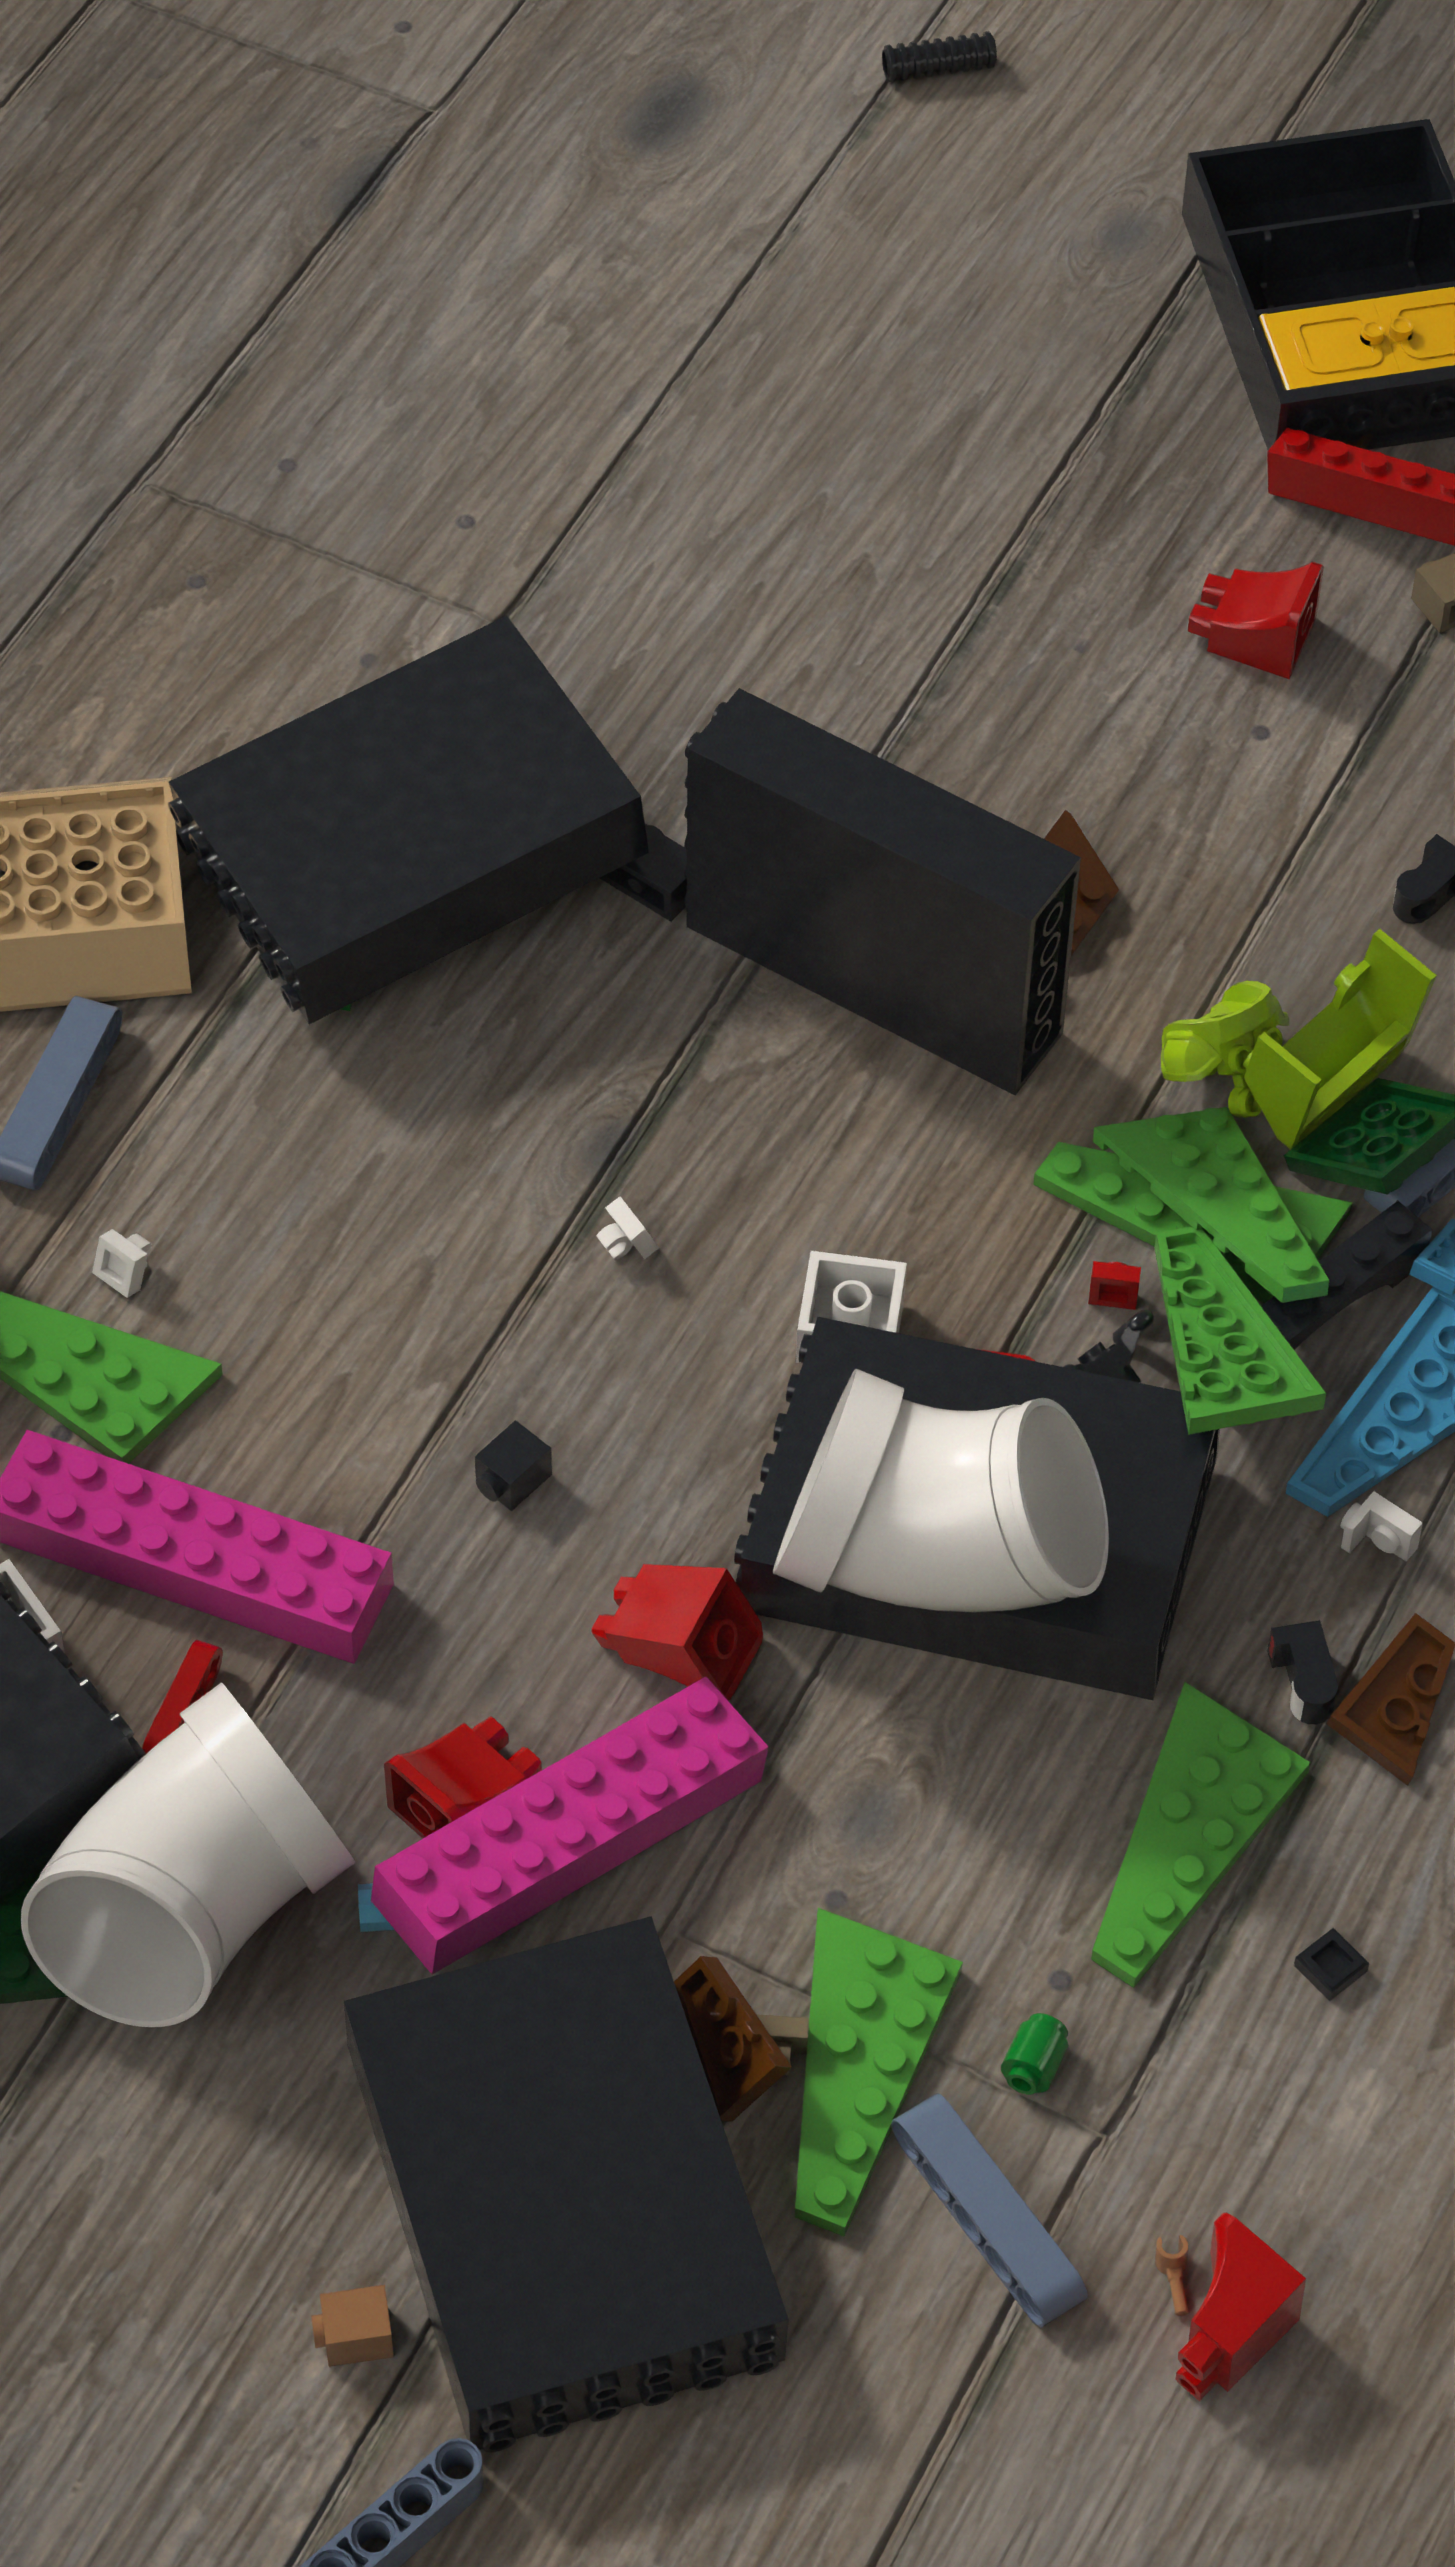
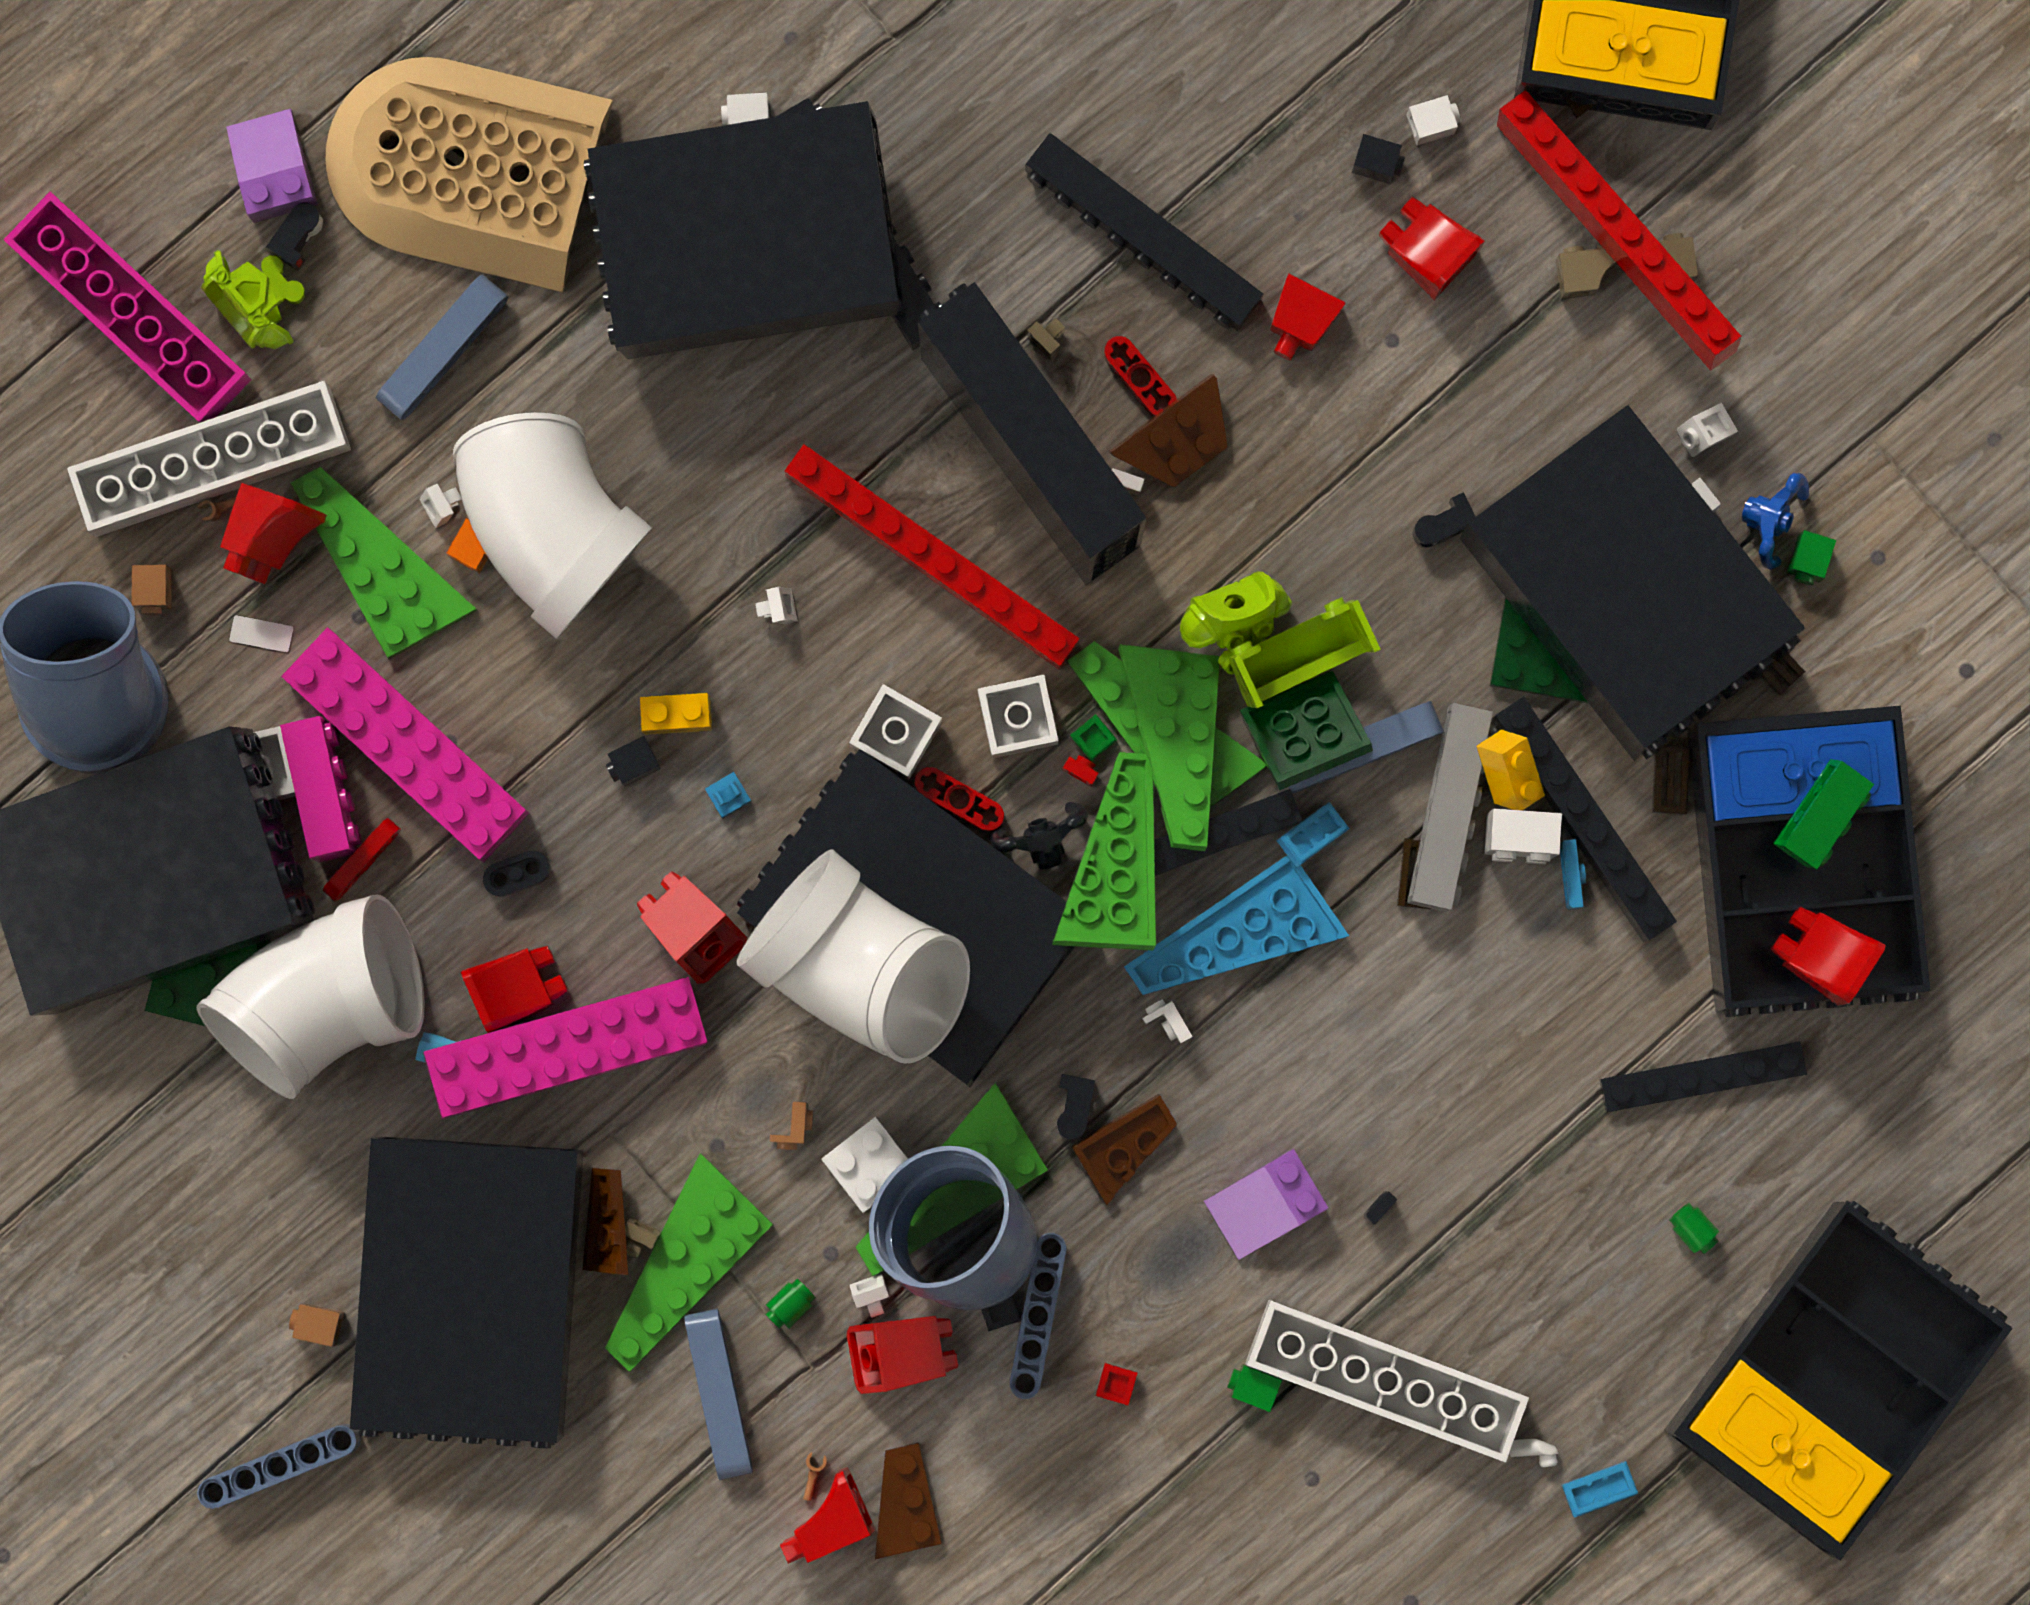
camera: 20 degrees right, 30 degrees up
(97, 1628) = (320, 788): none -> dark pink brick
(187, 1292) = (467, 549): none -> orange brick
(276, 1184) = (543, 513): none -> white cylinder
(403, 1652) = (517, 875): none -> black plate
(547, 1388) = (675, 713): none -> yellow brick
(658, 1469) = (728, 795): none -> dark azure tile
(805, 1113) = (931, 557): none -> red brick
(907, 707) = (1142, 232): none -> black brick
(942, 1833) = (801, 1121): none -> medium nougat bracket
(1003, 1244) = (1018, 716): none -> white brick
(1063, 1835) = (865, 1162): none -> white brick
(1110, 1245) = (1093, 738): none -> green tile
(1140, 729) = (1303, 316): none -> red torso
(1144, 2002) = (870, 1293): none -> white tile
(1147, 555) = (1378, 159): none -> black brick
(1191, 501) = (1433, 120): none -> white brick
(1216, 2055) = (899, 1353): none -> red hips
(1273, 1875) = (996, 1274): none -> sand blue cylinder
(1343, 2278) = (906, 1504): none -> reddish brown wing
(1387, 1965) = (1037, 1332): none -> sand blue beam

